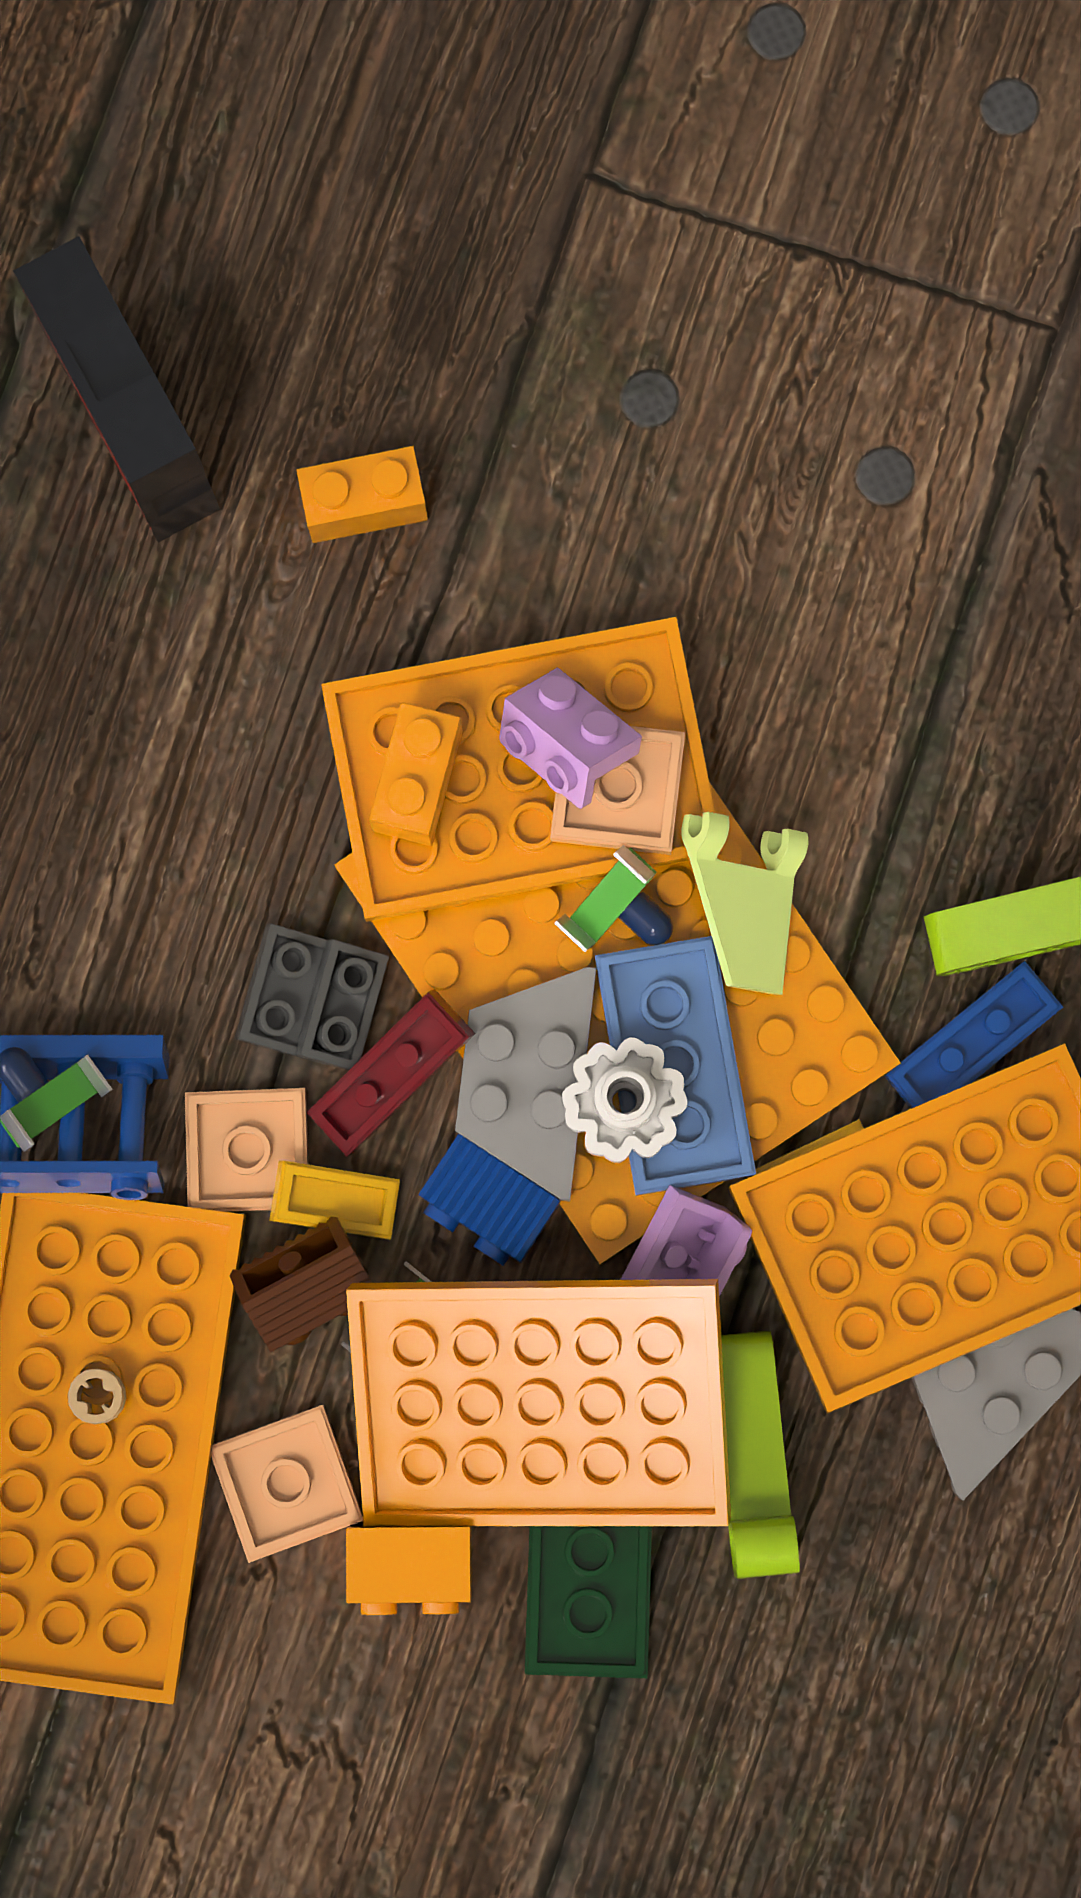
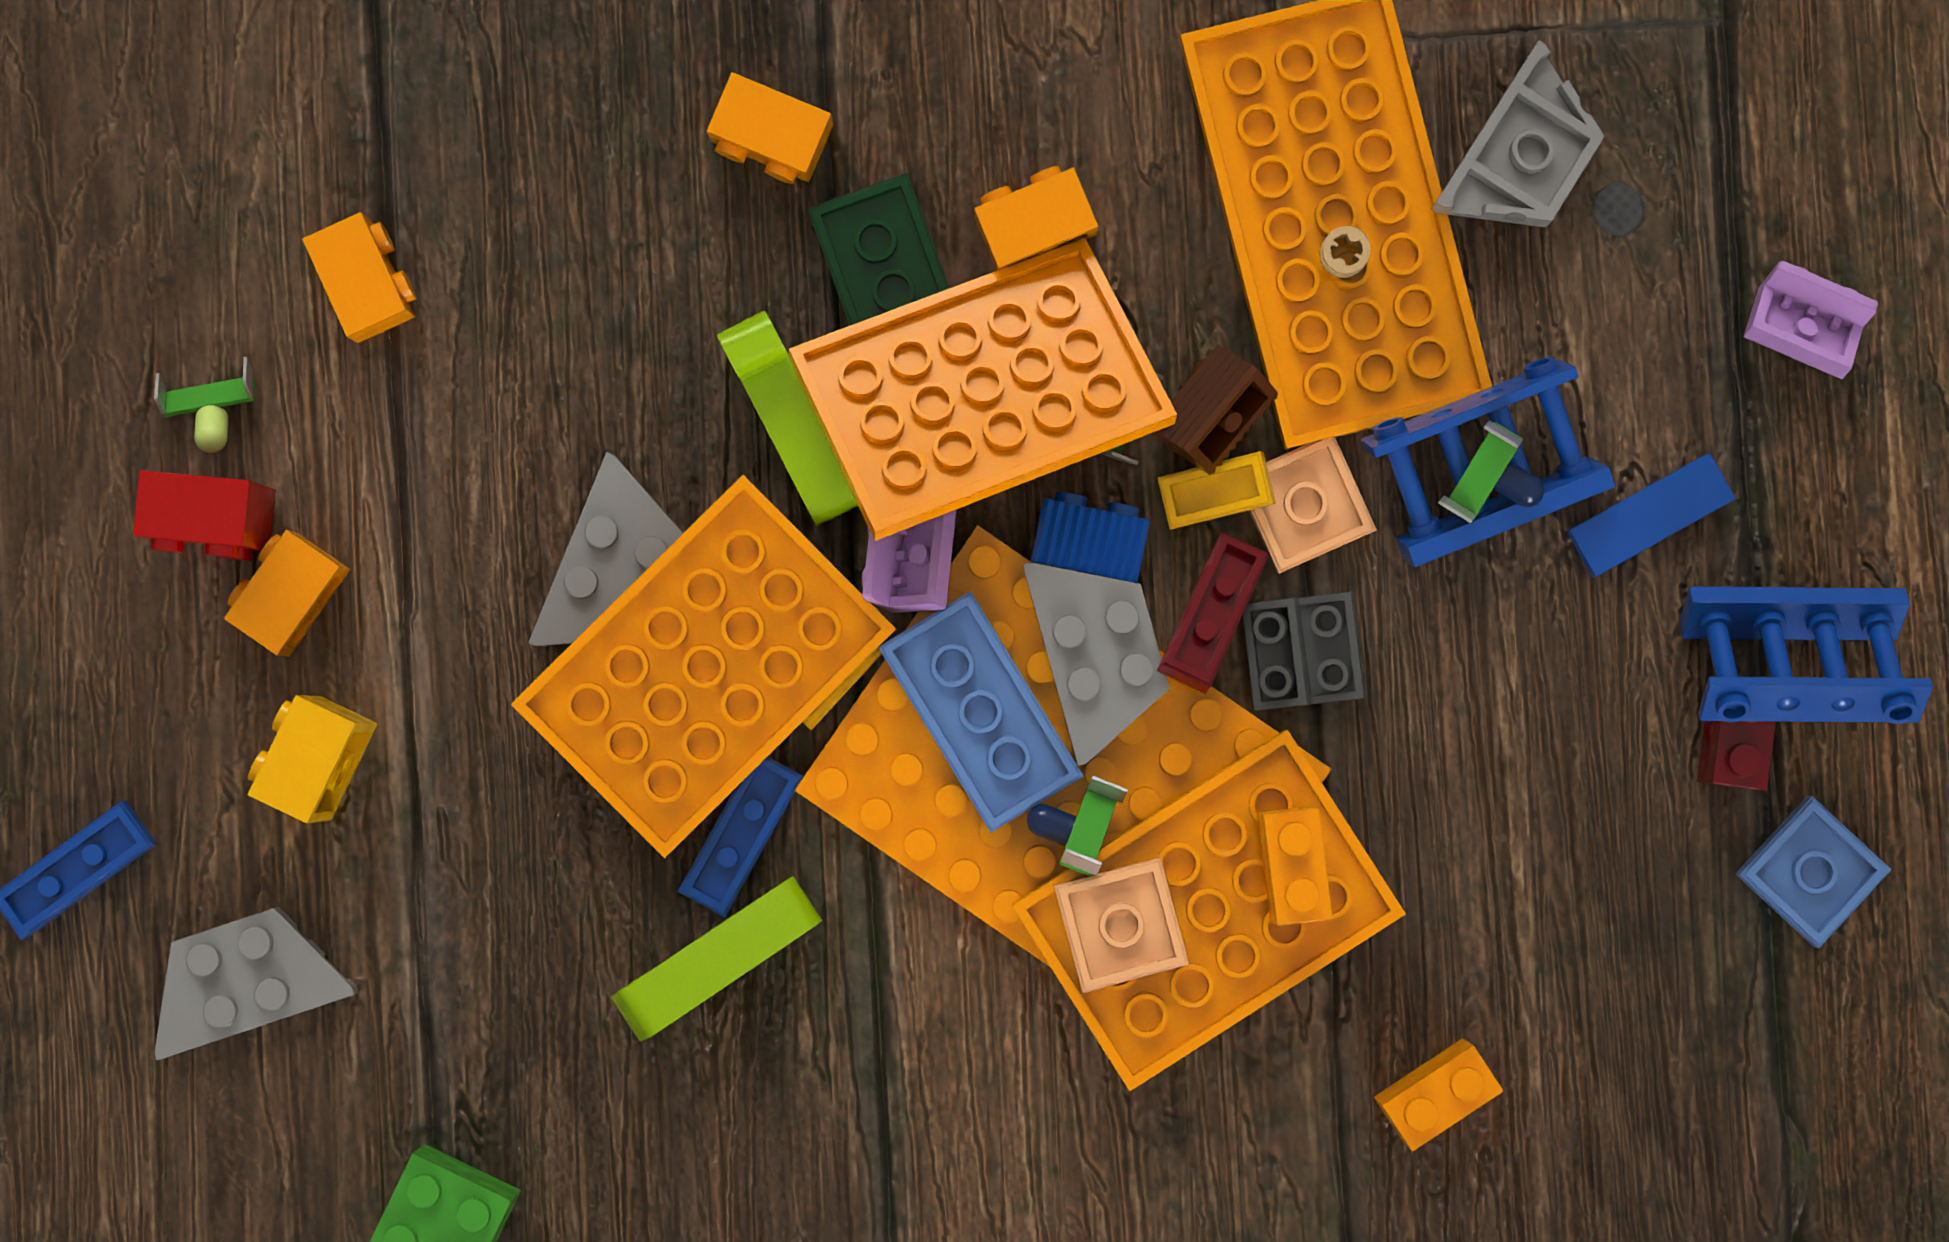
camera: 155 degrees right, 5 degrees up
(118, 388) = (1688, 1096): black tile -> none
(286, 1483) = (1161, 247): light nougat tile -> none
(565, 735) = (1182, 949): lavender bracket -> none
(633, 1069) = (1014, 633): white plant -> none
(654, 1780) = (769, 129): none -> light orange brick
(746, 904) = (975, 868): yellowish green flag -> none

